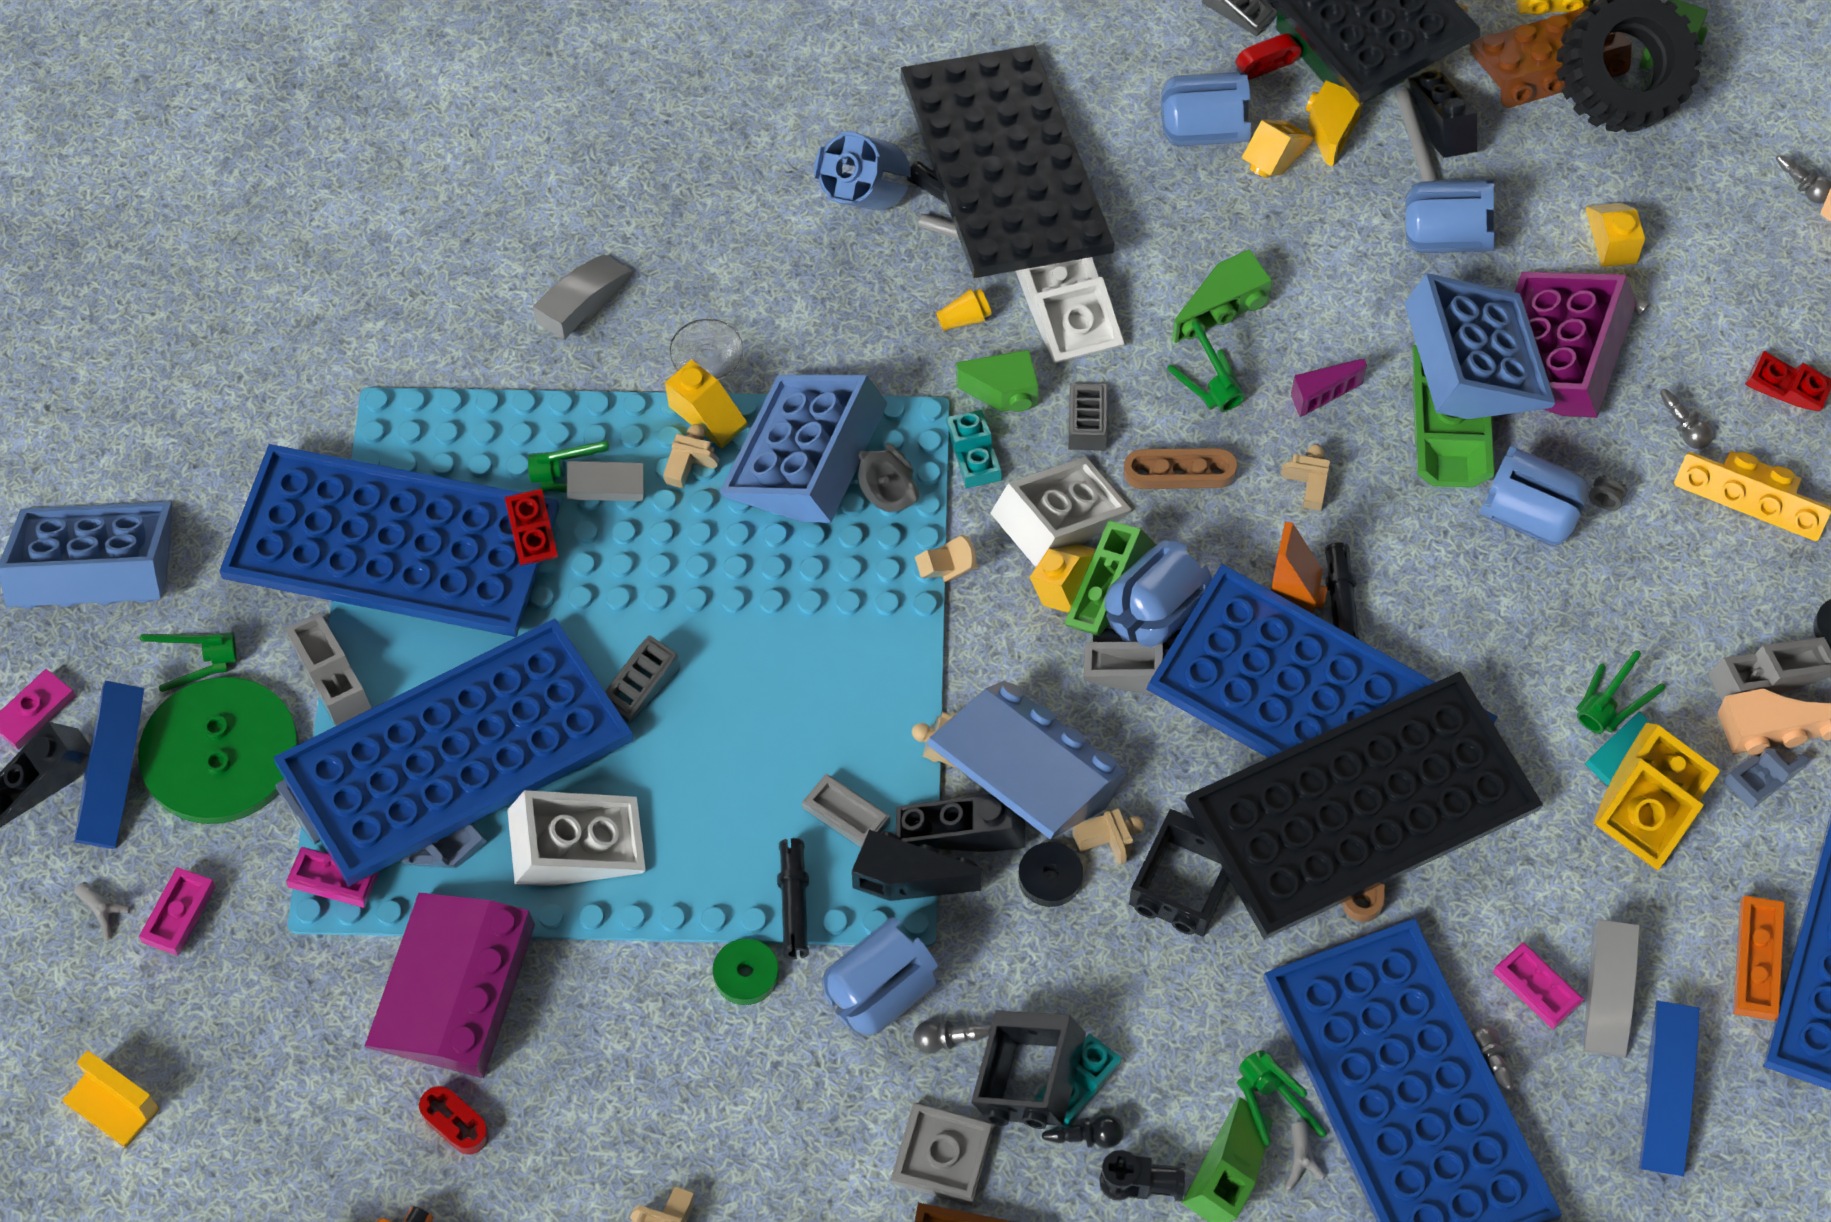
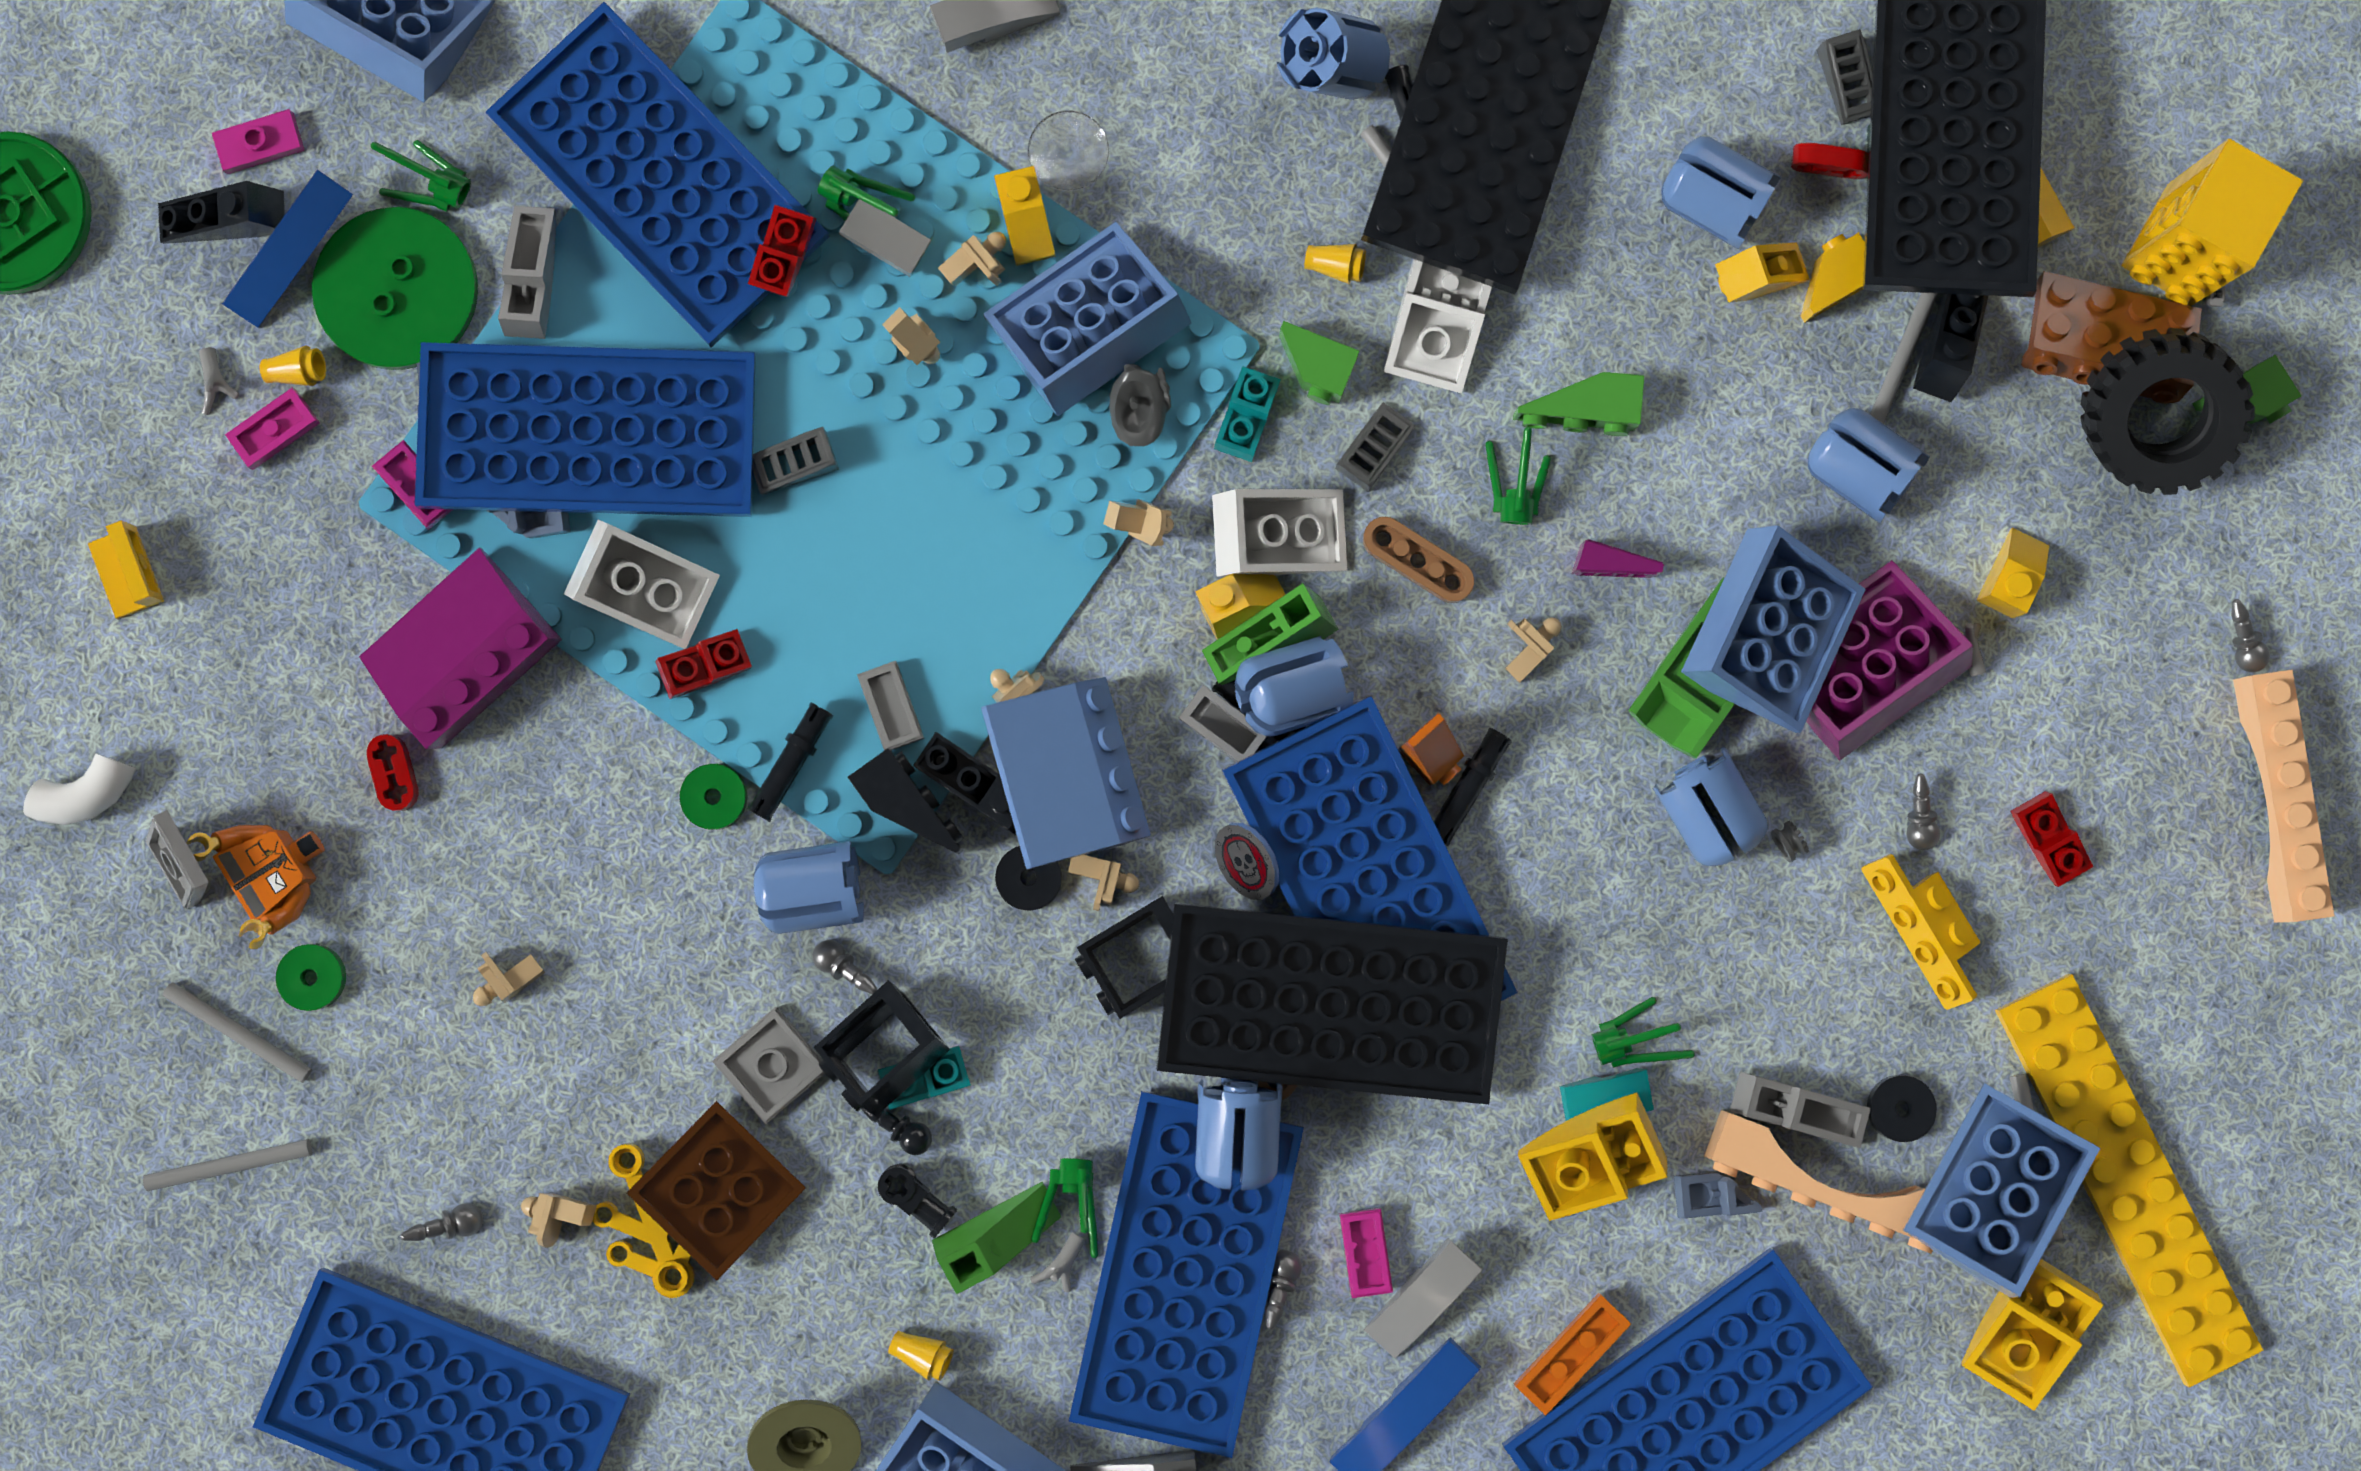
camera: 30 degrees right, 25 degrees up
(169, 852) = (296, 367): none -> yellow cone
(669, 872) = (703, 664): none -> red slope
(677, 531) = (913, 337): none -> tan piece
(1215, 745) = (1246, 861): none -> shield
(1368, 940) = (1259, 1132): none -> medium blue cylinder

